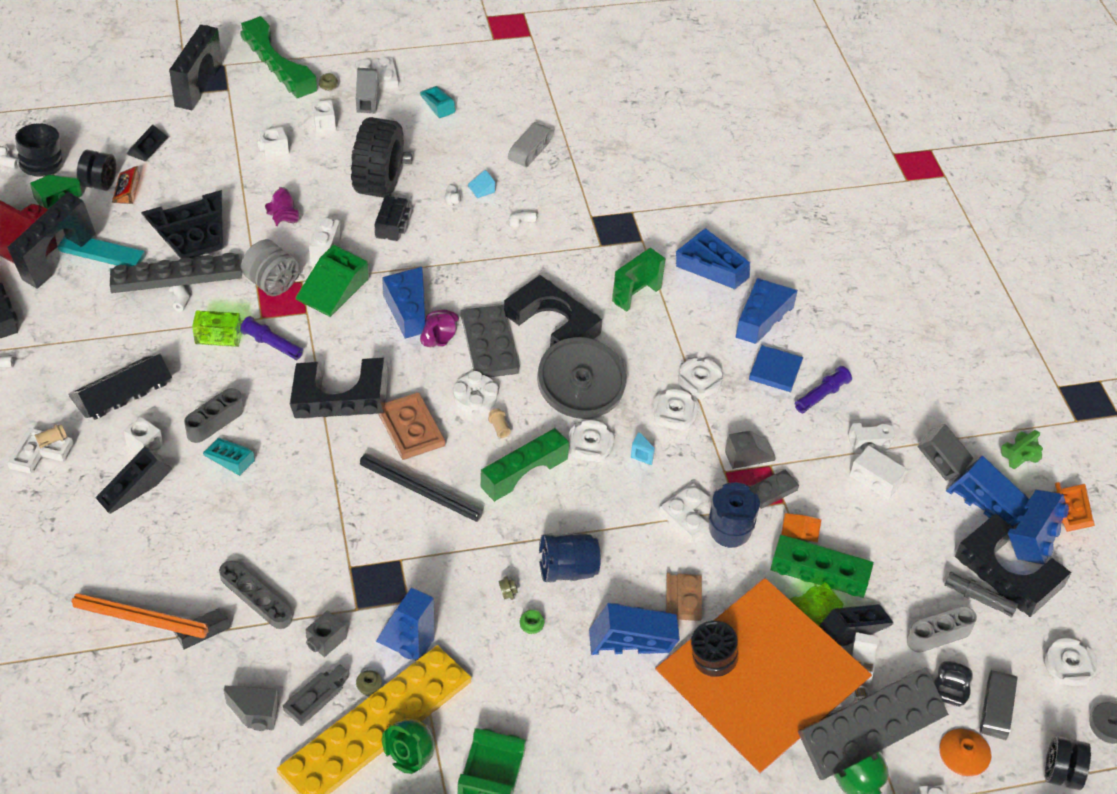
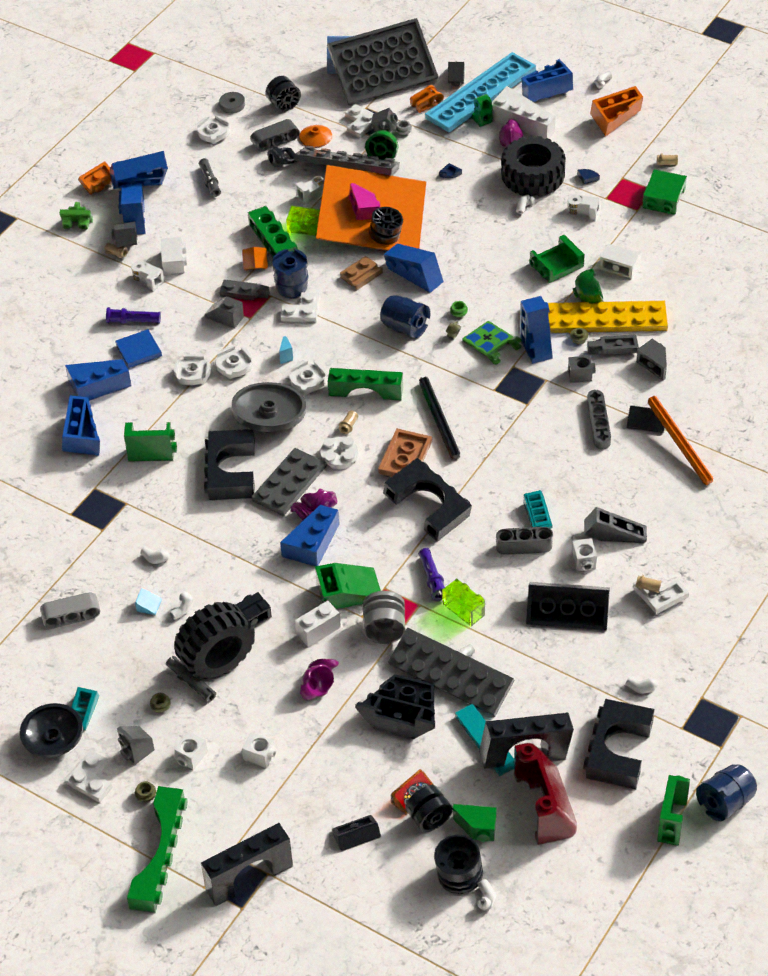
camera: 130 degrees left, 0 degrees up
(434, 66) = (49, 722): none -> black dish
(462, 609) = (489, 339): none -> bright green flag
(771, 654) = (362, 202): none -> dark pink slope
(844, 622) = (302, 197): black slope -> none
(941, 629) = (254, 175): light grey beam -> none
(1028, 590) = (180, 190): black arch -> none

